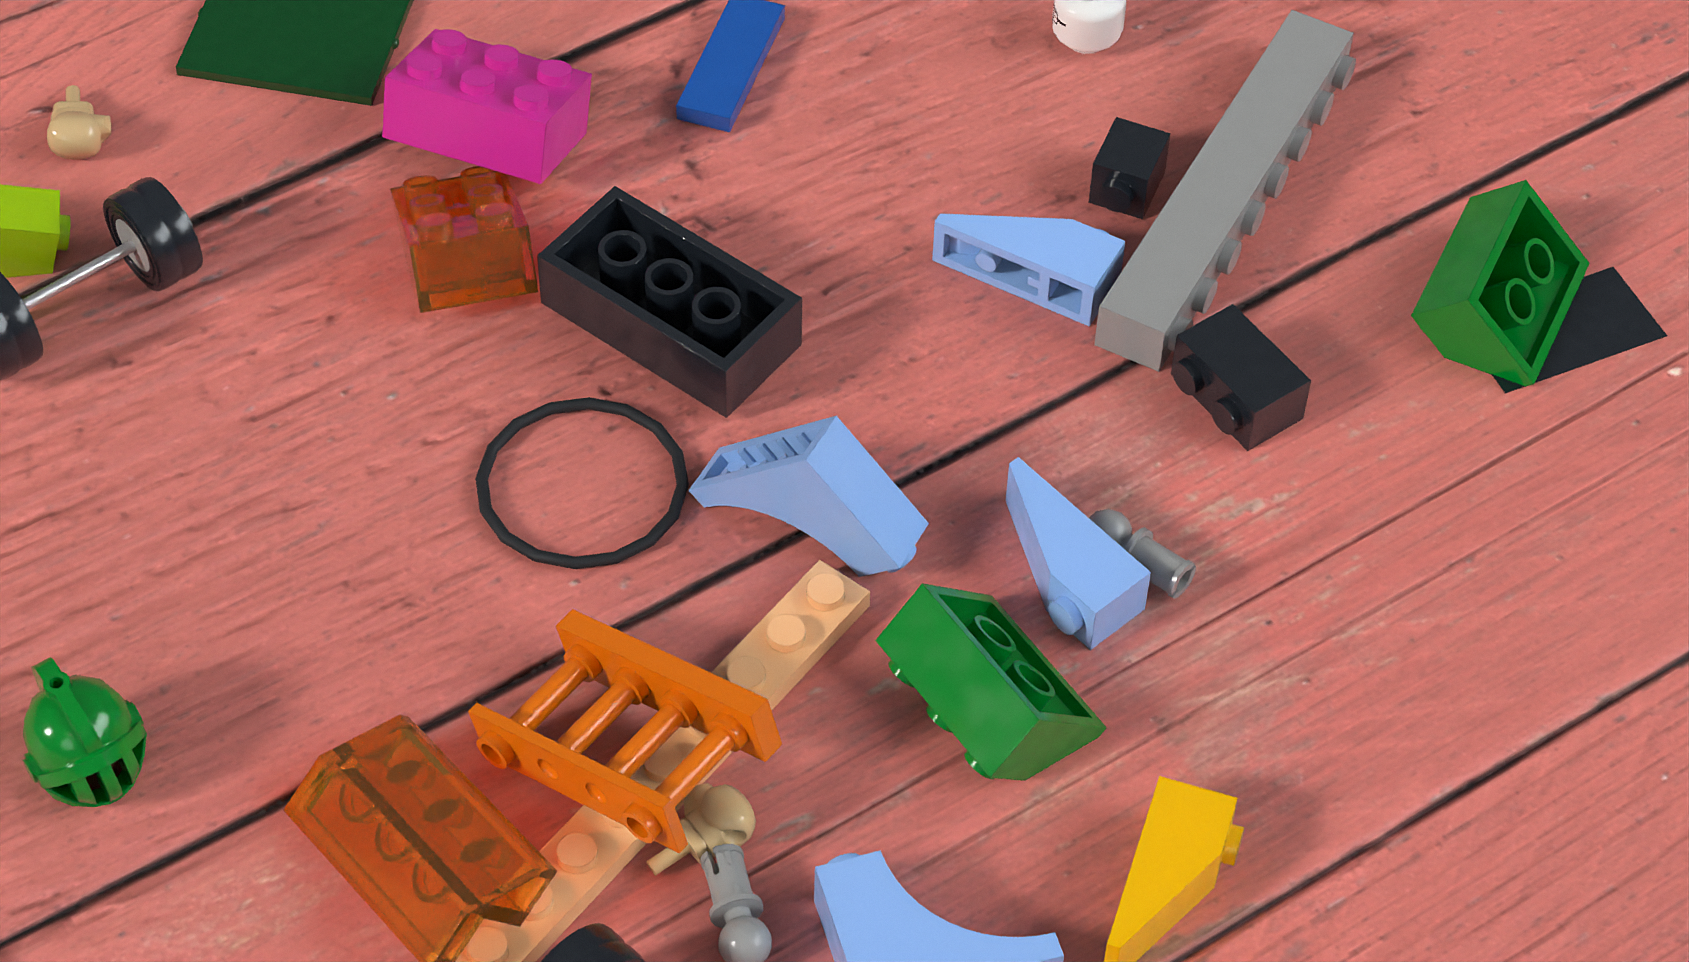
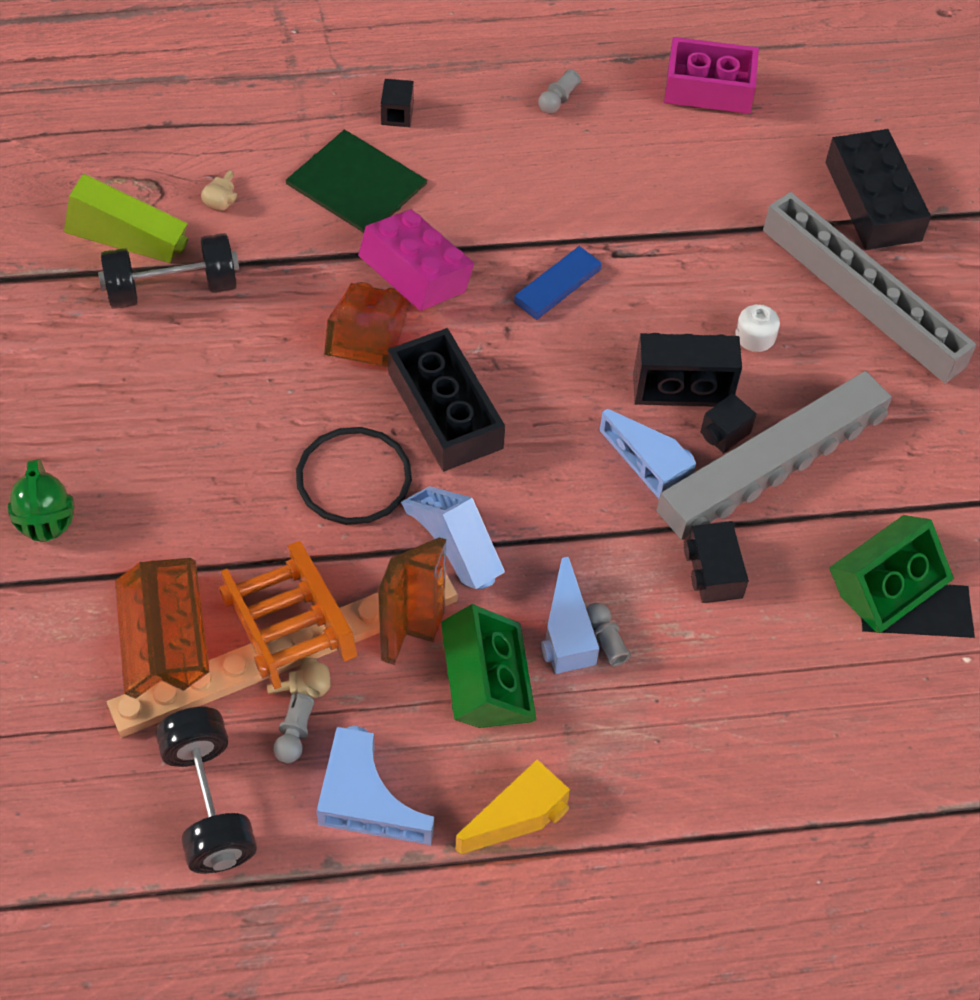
camera: 25 degrees right, 5 degrees up
(834, 606) = (412, 597): none -> clear orange slope
(1024, 110) = (686, 369): none -> black brick

